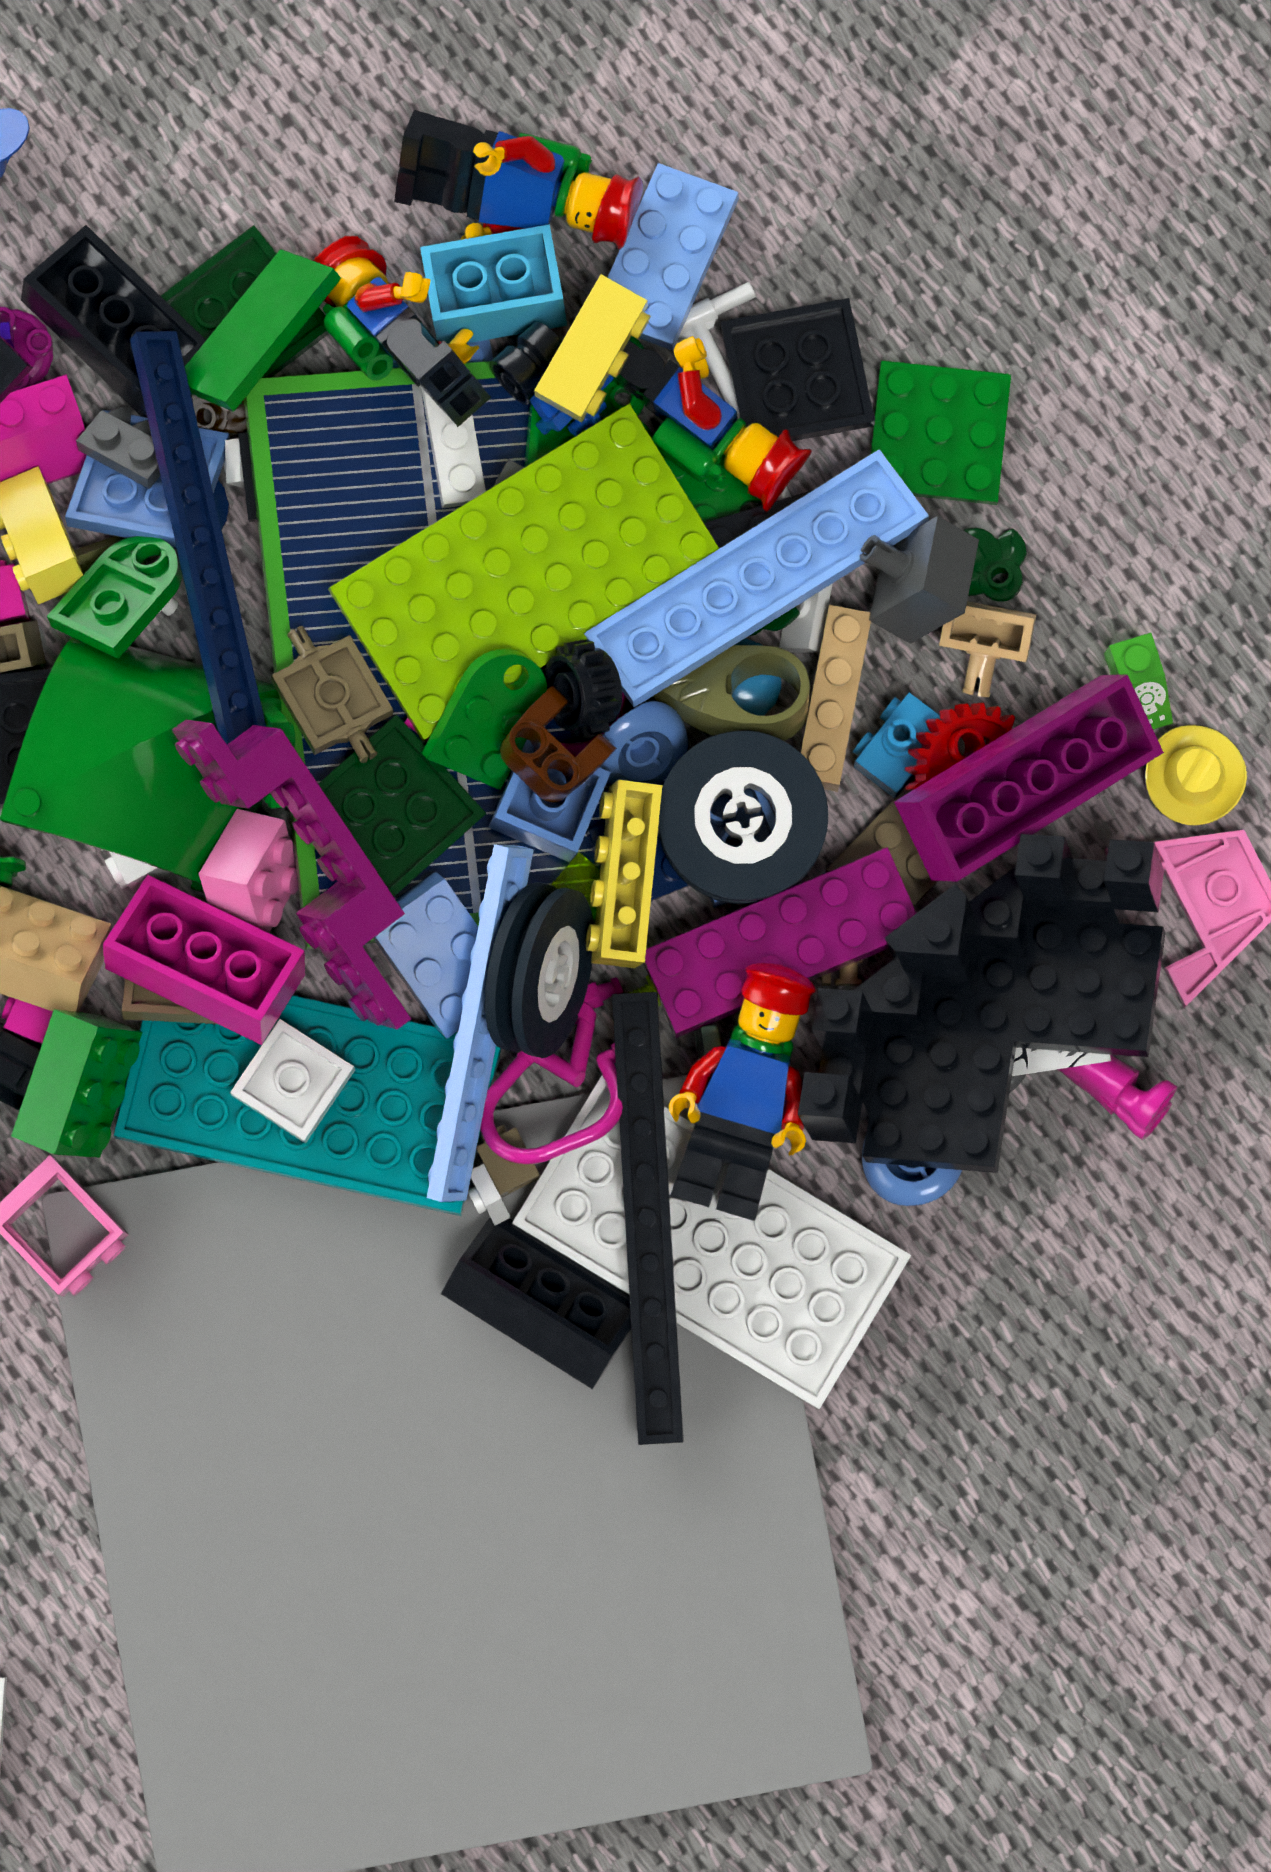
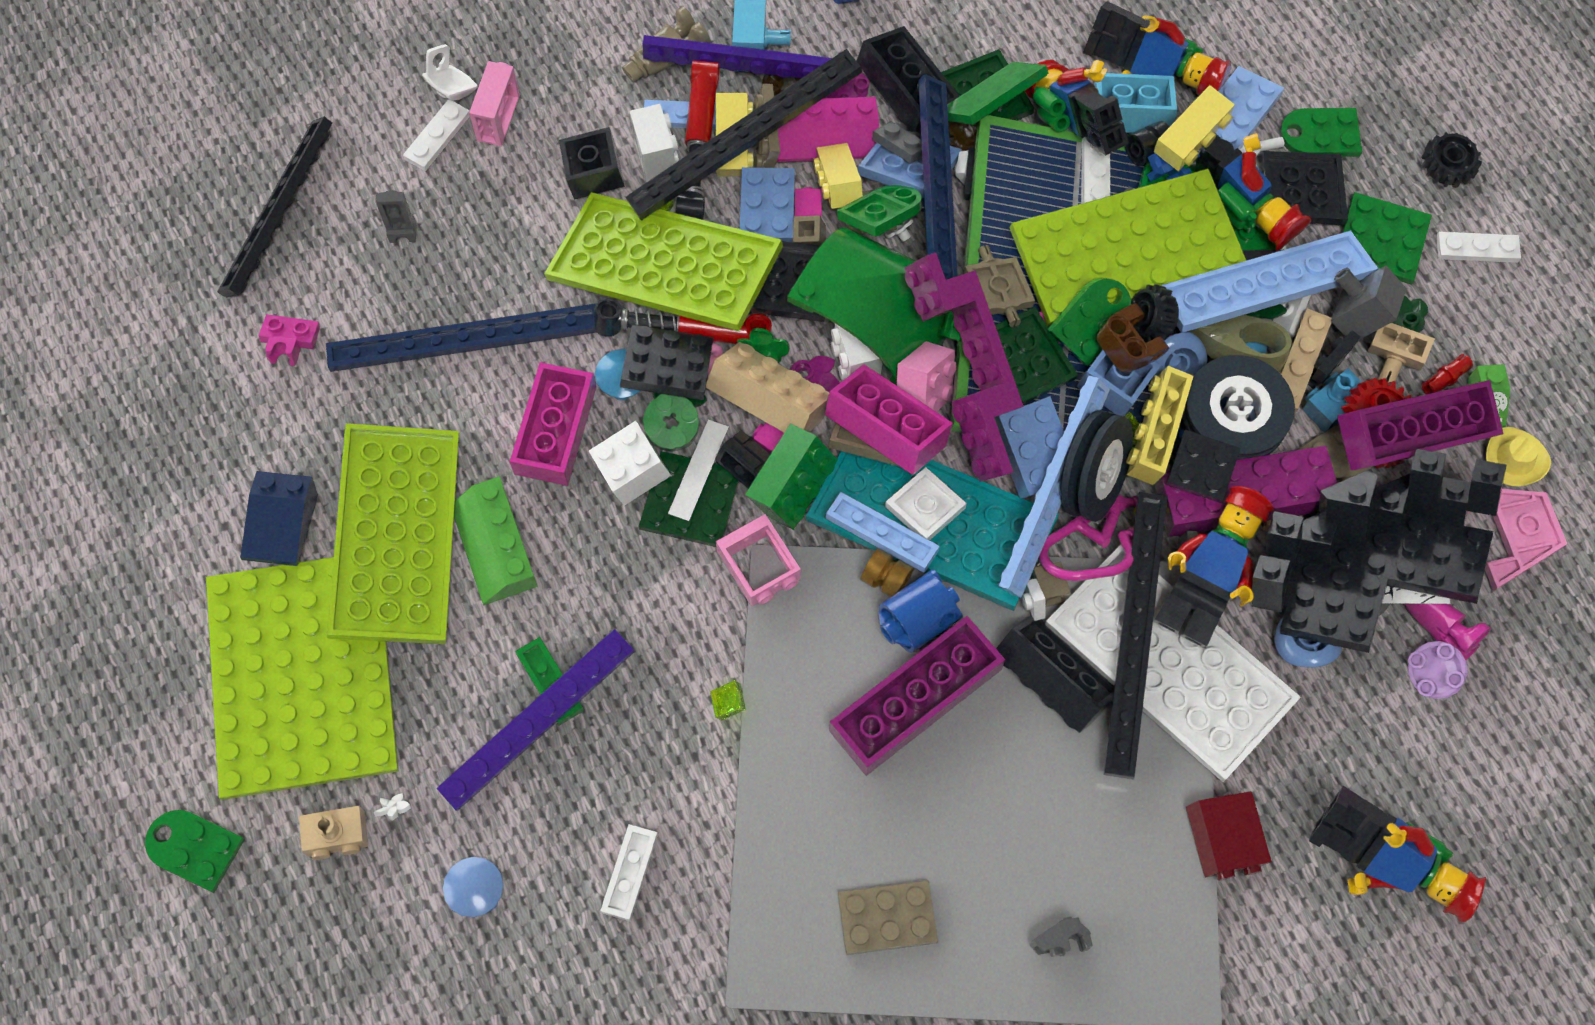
camera: 10 degrees right, 15 degrees down
(62, 1453) = (727, 700): none -> clear neon green plate
(85, 889) = (818, 371): none -> magenta plate
(234, 1142) = (882, 532): none -> light blue plate
(257, 1203) = (886, 573): none -> pearl gold wheel
(316, 1260) = (919, 612): none -> blue cylinder
(339, 1388) = (916, 695): none -> magenta brick
(366, 1725) = (887, 917): none -> dark tan plate
(611, 1703) = (1056, 938): none -> dark grey hand
(701, 935) = (1203, 466): none -> black plate
(818, 256) = (1323, 131): none -> green plate
(838, 1490) = (1228, 835): none -> dark red brick
(874, 695) = (1333, 359): none -> black plate
(1030, 242) = (1463, 162): none -> black gear
(1070, 659) = (1447, 374): none -> red pin
(1082, 1465) = (1395, 854): none -> piece
(1094, 414) = (1478, 247): none -> white plate
(1111, 1159) = (1437, 669): none -> lavender dish

